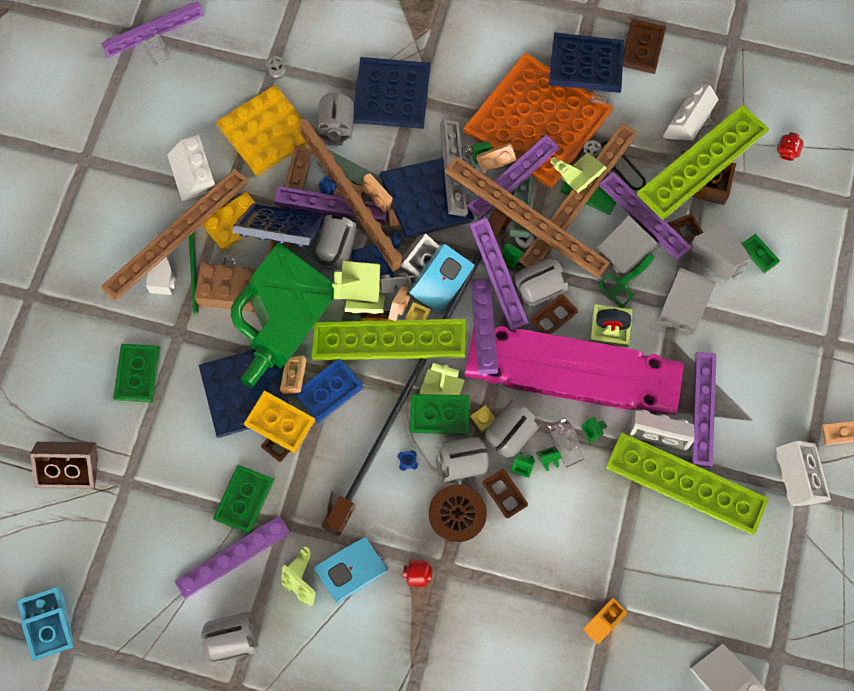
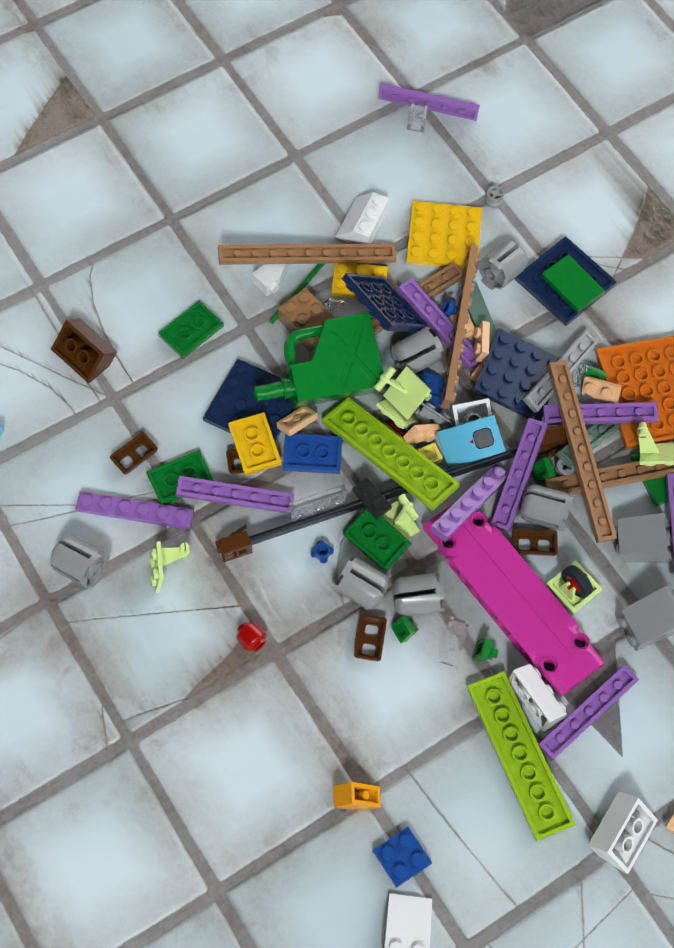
camera: 40 degrees right, 5 degrees down
(181, 512) = (129, 450): none -> reddish brown piece
(301, 475) = (234, 494): none -> medium lavender plate
(350, 569) = (205, 591): medium azure slope -> none
(373, 427) = (317, 503): none -> clear plate
(395, 239) = (463, 387): blue plate -> none
(400, 90) = (572, 283): none -> green tile
(410, 386) = (371, 498): none -> pearl dark grey plate
(455, 492) = (323, 600): reddish brown piece -> none
(482, 418) = (407, 568): light yellow plate -> none
(549, 455) = (429, 639): green tile -> none
(622, 283) = (614, 562): green piece -> none
(675, 633) = (402, 857): none -> blue plate

